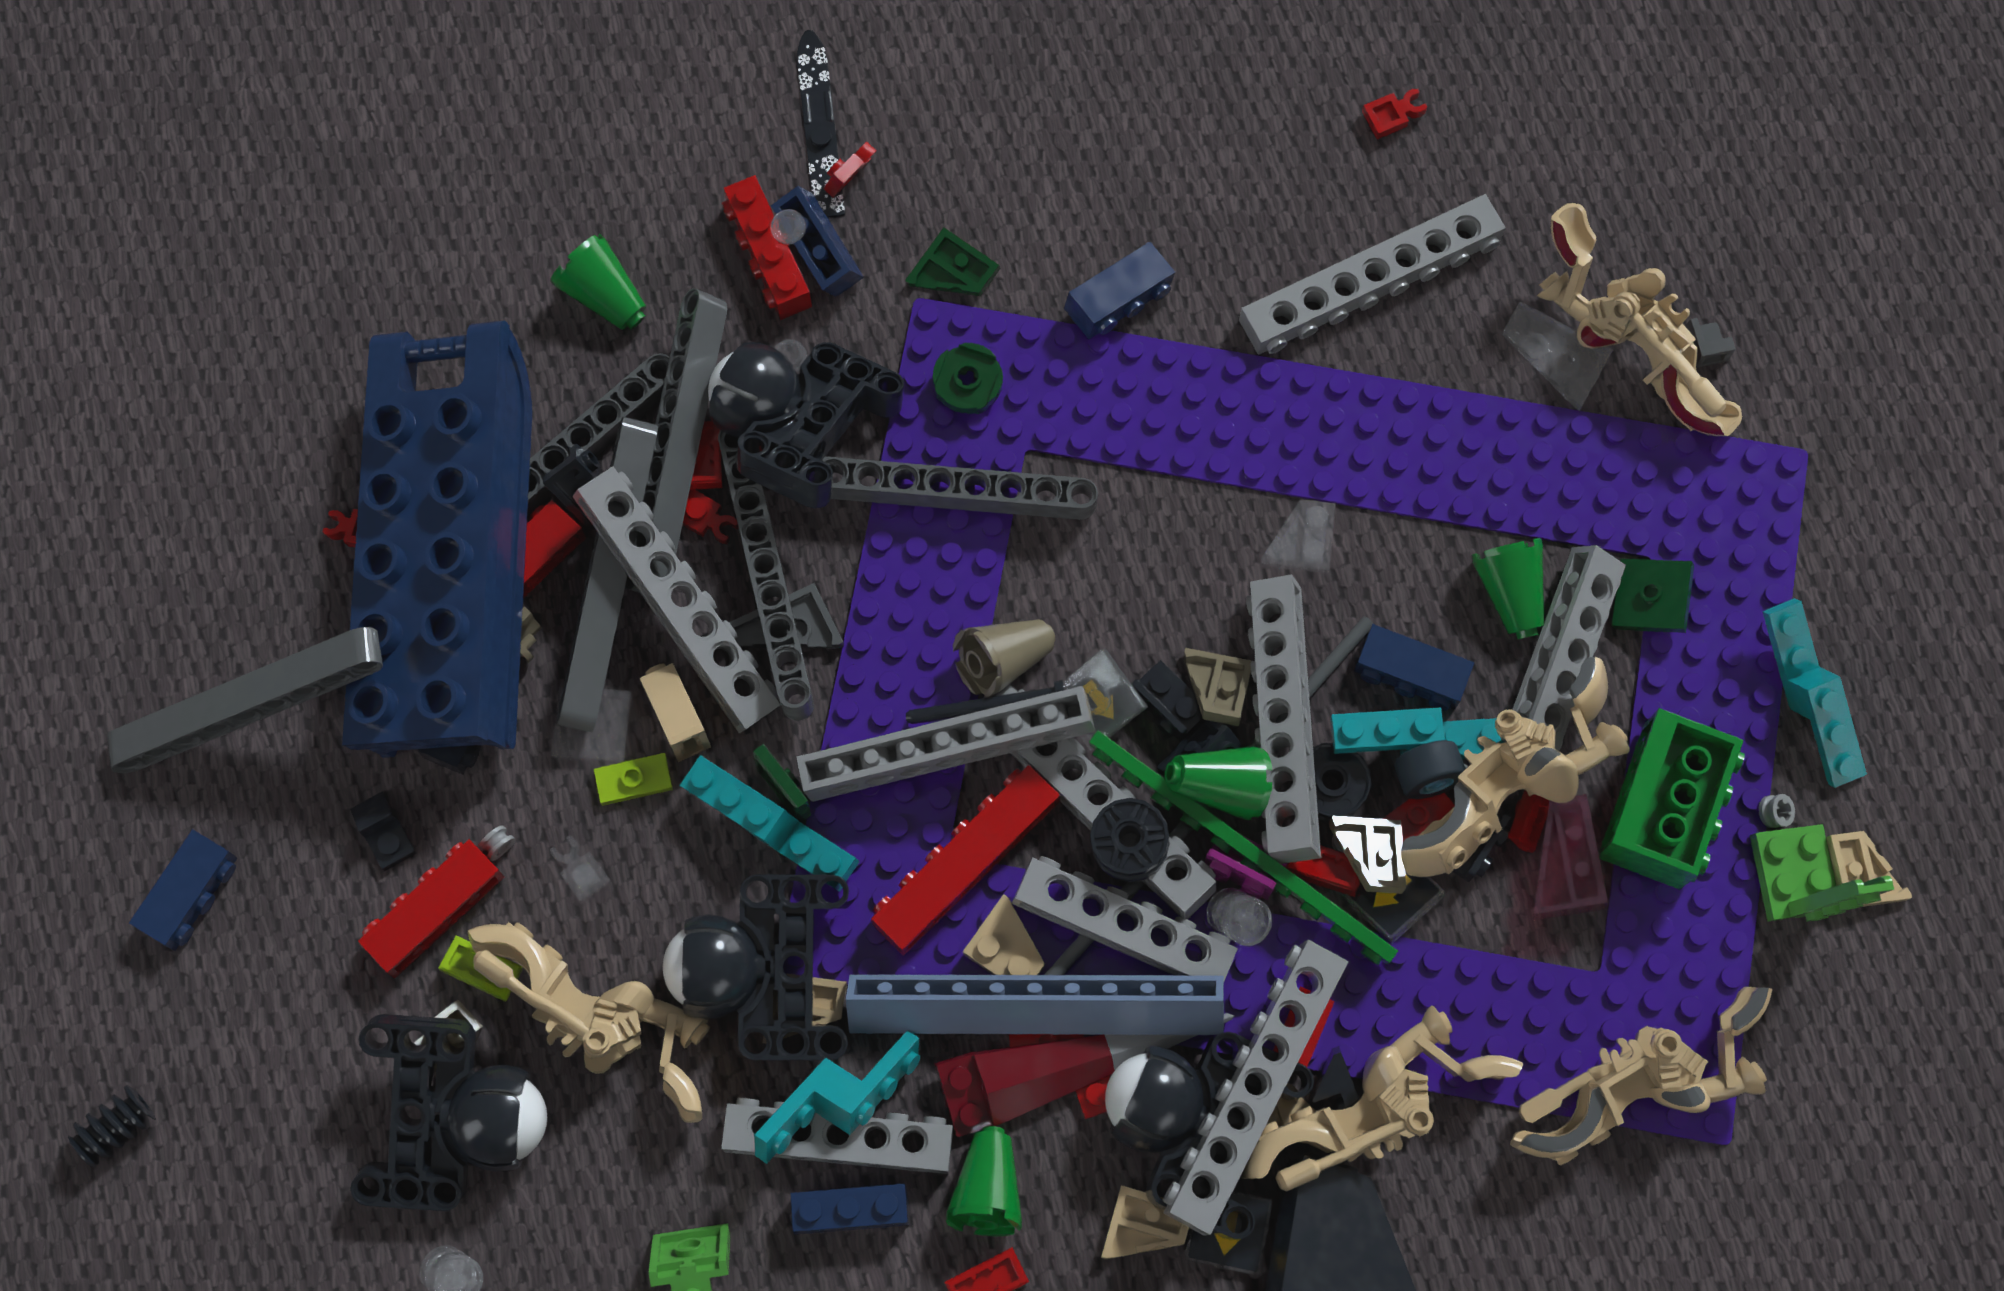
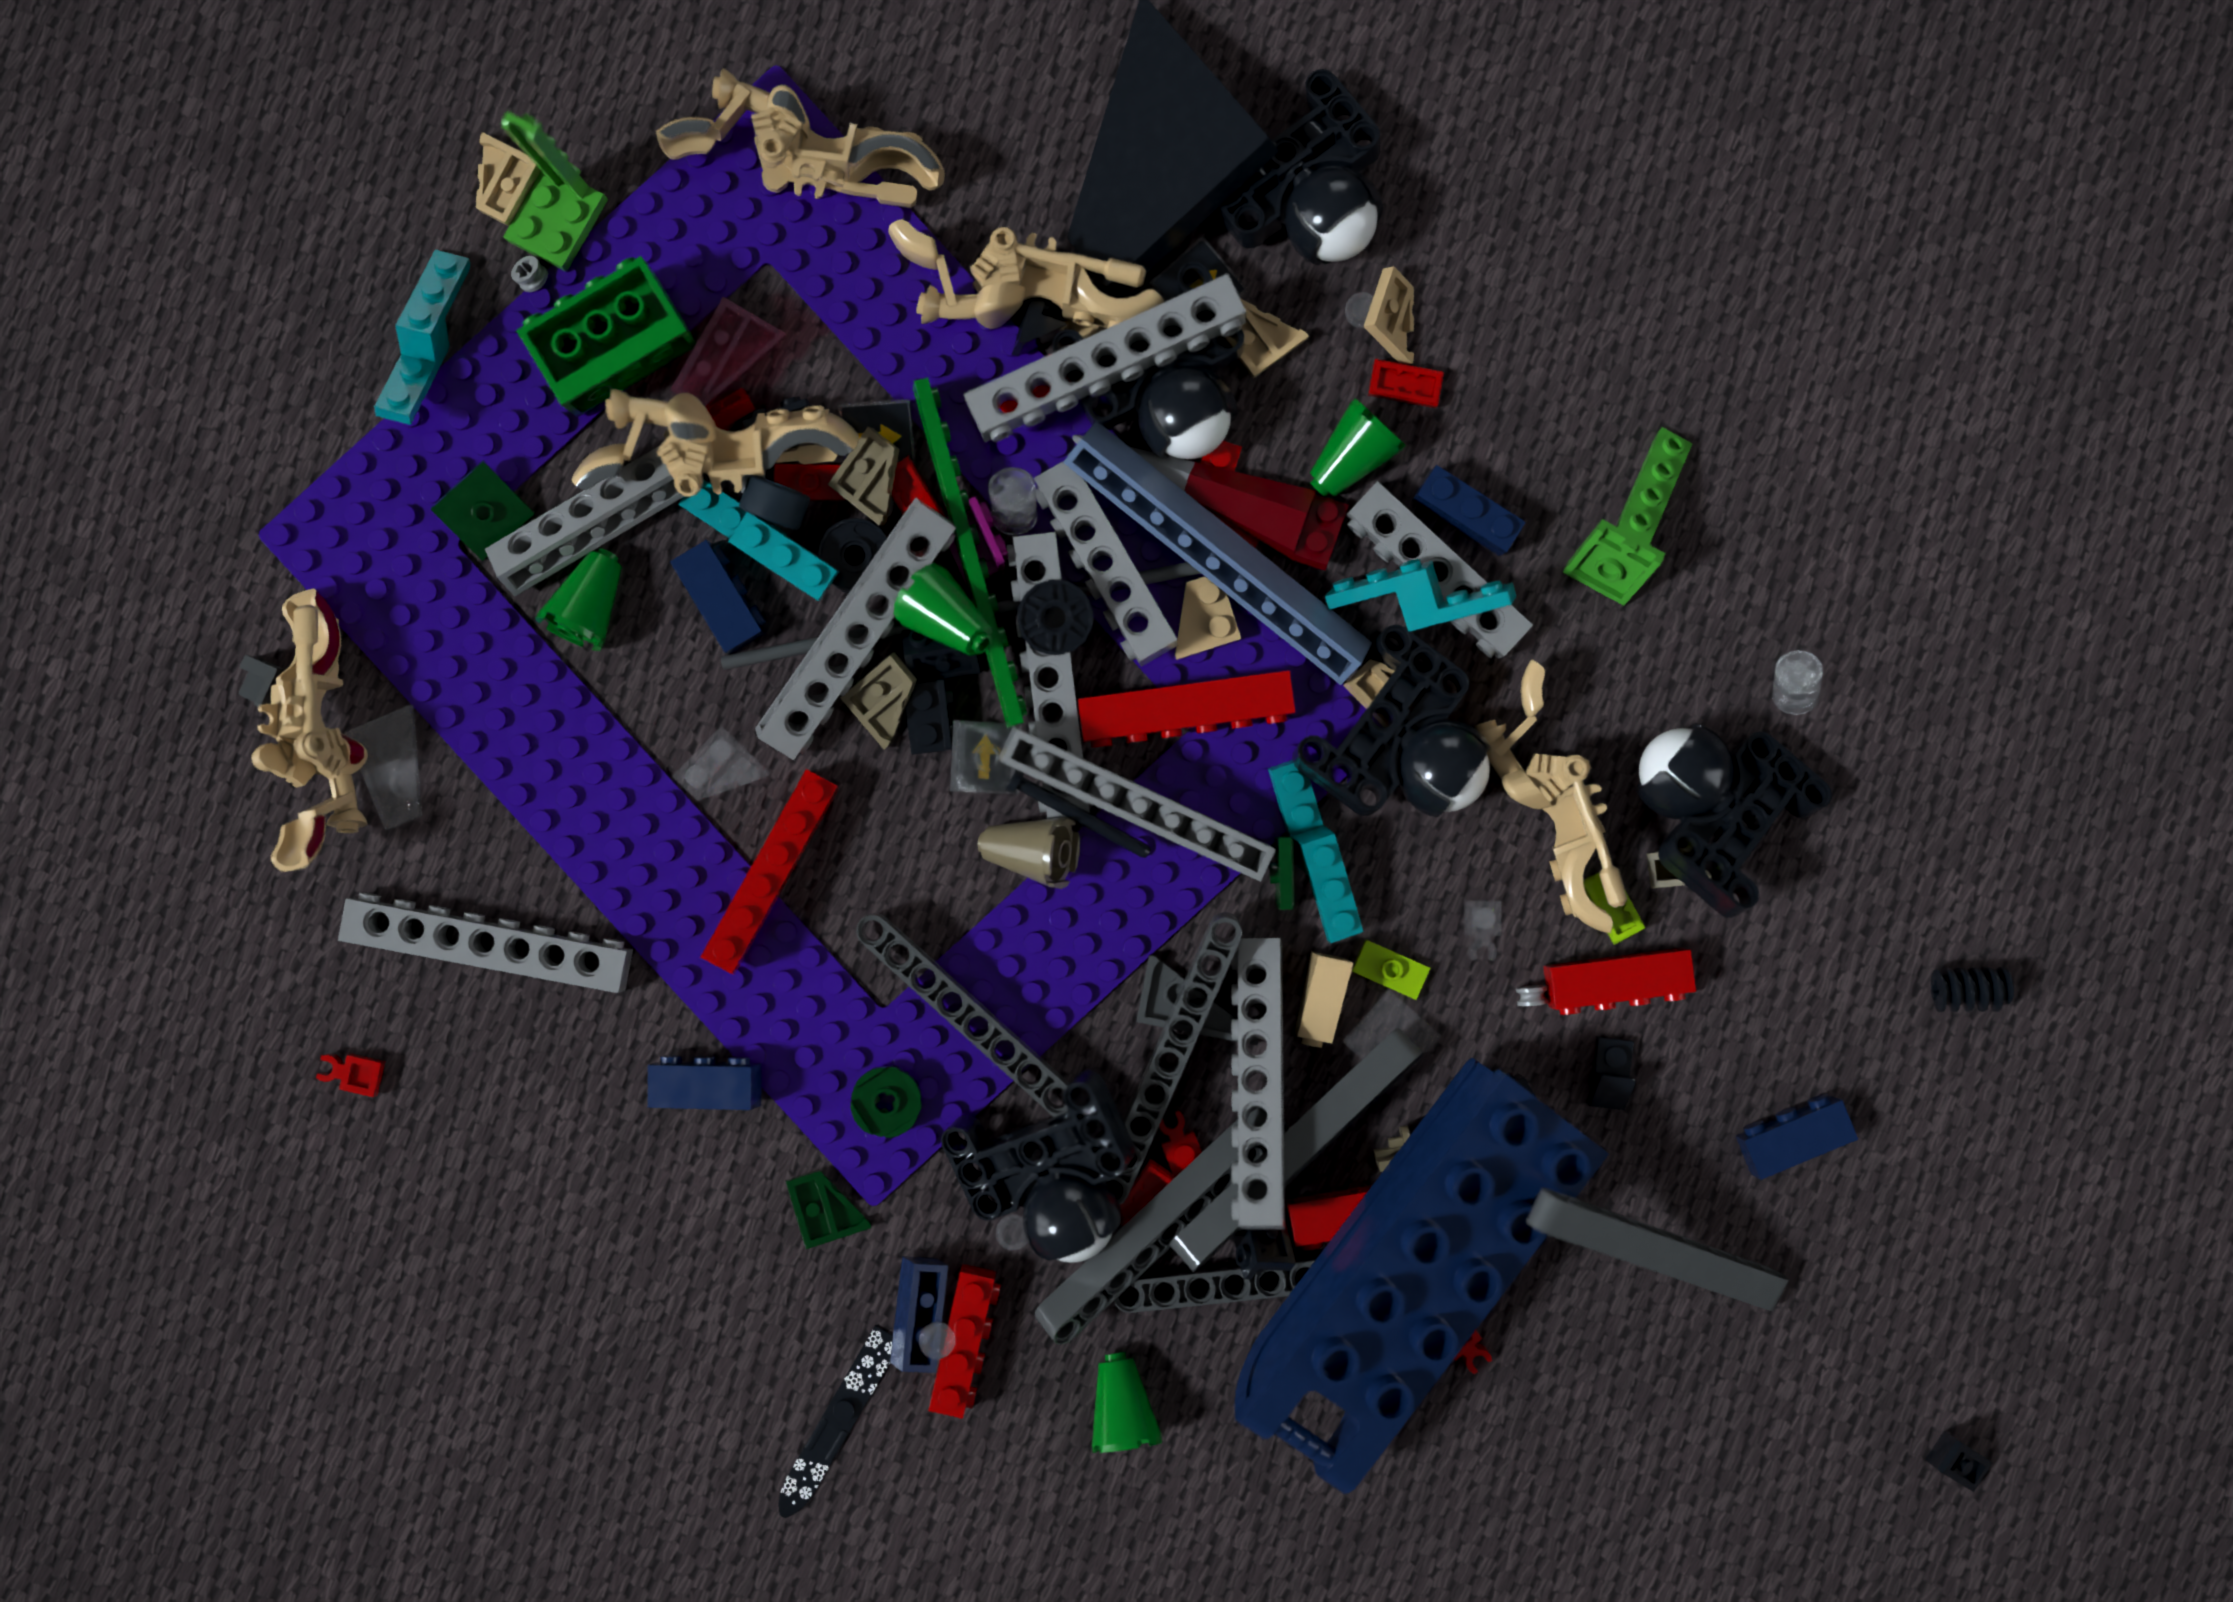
camera: 145 degrees left, 15 degrees up
(843, 172) = (850, 1361): red plate -> none
(1198, 482) = (769, 872): none -> red brick

